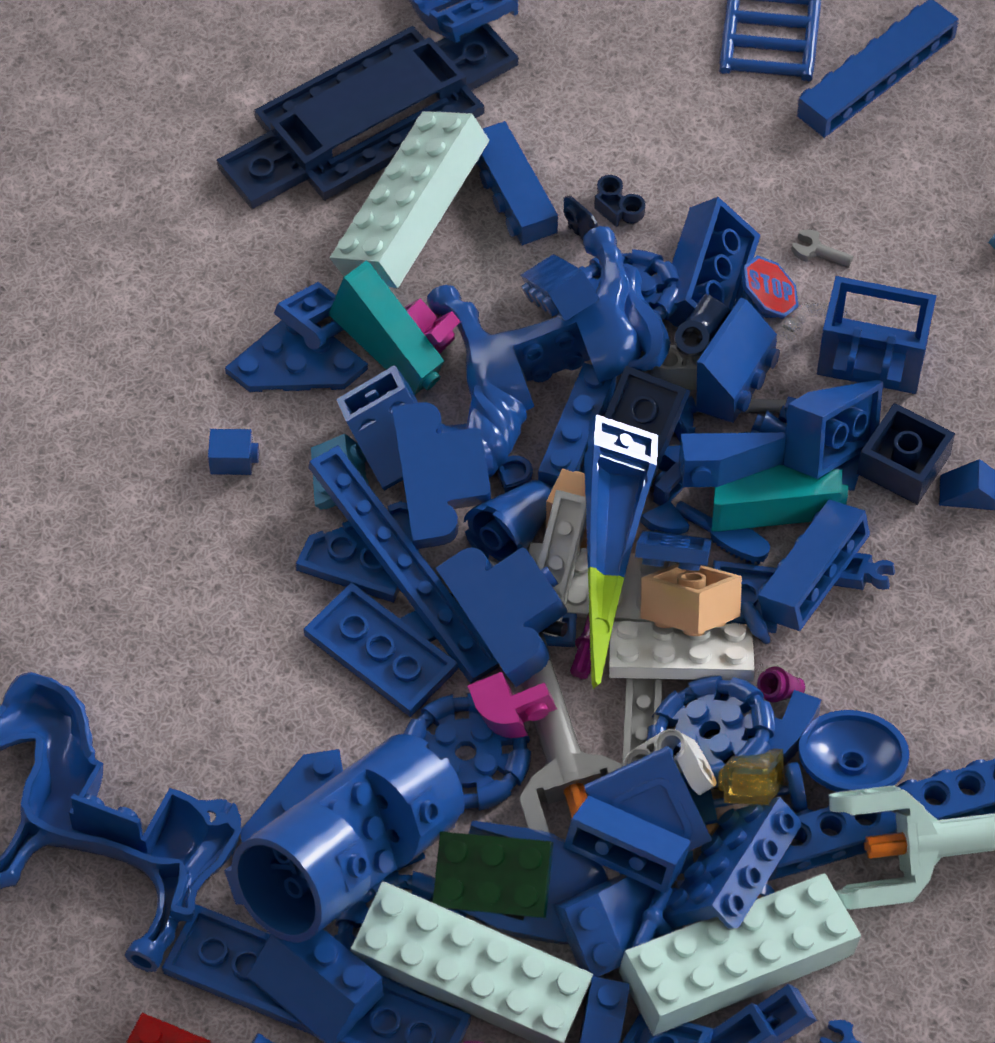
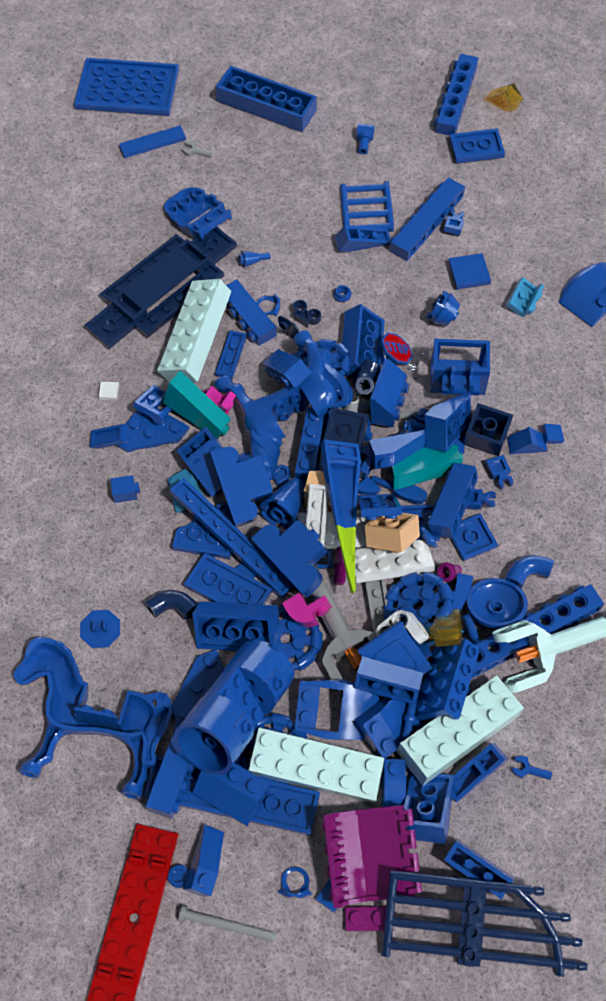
camera: 10 degrees left, 5 degrees up
(142, 681) = (100, 628): none -> blue piece
(211, 952) = (170, 784): none -> blue brick
(221, 358) = (108, 436): none -> blue tile
(238, 281) = (109, 391): none -> white tile
(277, 653) = (171, 600): none -> dark blue cylinder
(364, 707) = (232, 624): none -> blue slope
(469, 251) = (231, 354): none -> blue tile
(493, 874) = (317, 710): dark green plate -> none
(535, 88) = (248, 258): none -> blue cone
(566, 167) = (275, 299): none -> blue piece
(693, 168) = (342, 289): none -> blue plate
(744, 83) = (359, 238): none -> blue slope
(816, 249) = (416, 323): light grey bar -> none
(838, 637) = (473, 538): none -> blue tile
(871, 231) = (444, 309): none -> blue cone
(912, 526) = (499, 469): none -> blue plate
(926, 83) = (454, 223): none -> blue plate
(928, 701) = (529, 566): none -> blue cylinder
(935, 172) = (469, 271): none -> blue tile

